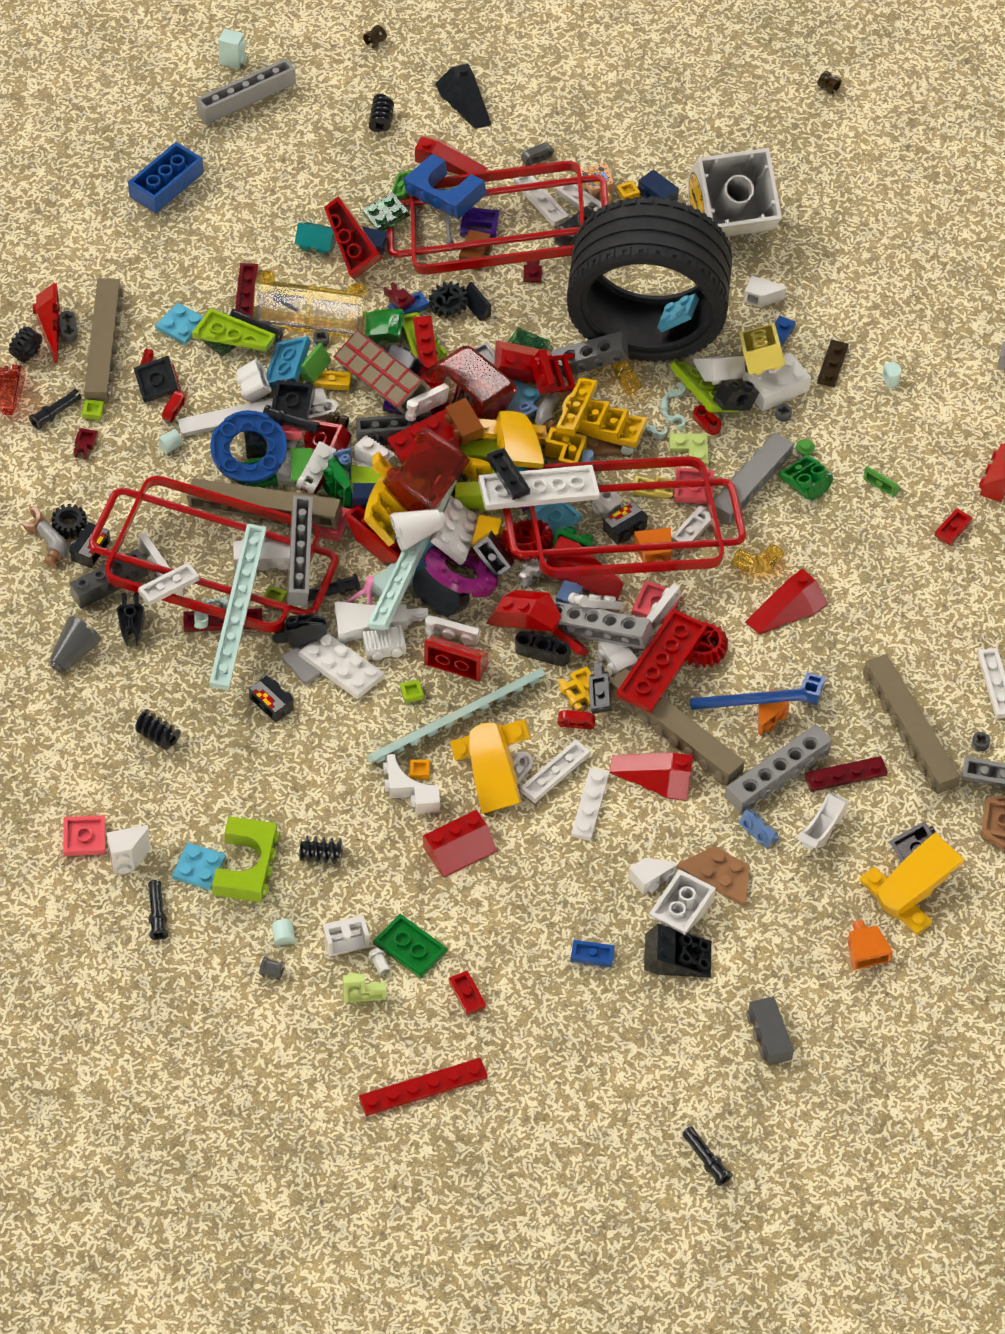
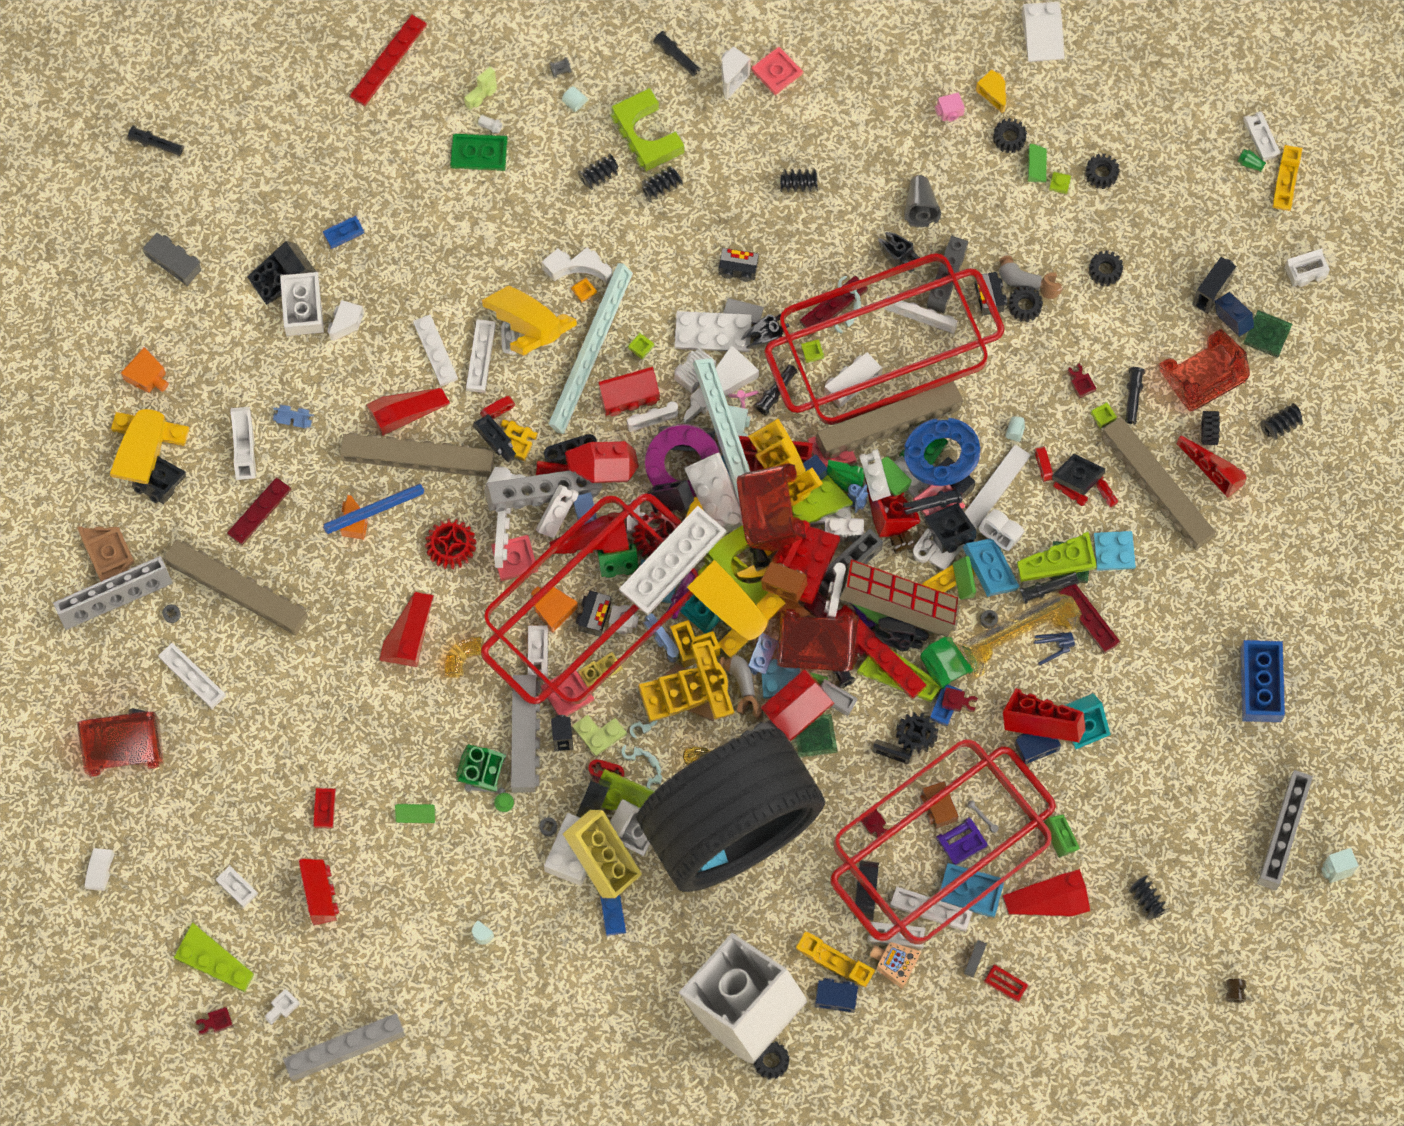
camera: 145 degrees right, 15 degrees up
(67, 326) = (1202, 476): dark grey beam -> none
(168, 584) = (885, 275): white plate -> none
(198, 866) = (678, 107): medium azure plate -> none
(237, 607) = (820, 299): light aqua plate -> none
(276, 805) = (661, 182): none -> black piece
(300, 551) = (813, 374): light grey brick -> none
(346, 935) = (526, 119): white window -> none
(386, 212) = (1048, 788): clear green plate -> none
(415, 526) = (739, 448): white cone -> none
(454, 201) = (1039, 829): blue arch -> none
(459, 843) = (505, 247): red slope -> none
(463, 94) = (1100, 982): black wedge -> none
(467, 992) = (410, 142): red plate -> none
(506, 203) = (971, 889): none -> dark azure plate
(508, 474) = (701, 542): black plate -> none
(532, 142) = (1020, 992): none -> red tile
(544, 375) = (764, 689): red plate -> none
(661, 660) = (463, 491): red plate -> none
(720, 871) = (297, 361): medium nougat wing -> none
(724, 452) = (562, 733): none -> black brick
(763, 292) = (658, 943): white slope -> none
(813, 738) = (302, 519): light grey brick -> none
(814, 686) = (334, 561): blue brick -> none
(832, 363) = (543, 914): dark brown plate -> none

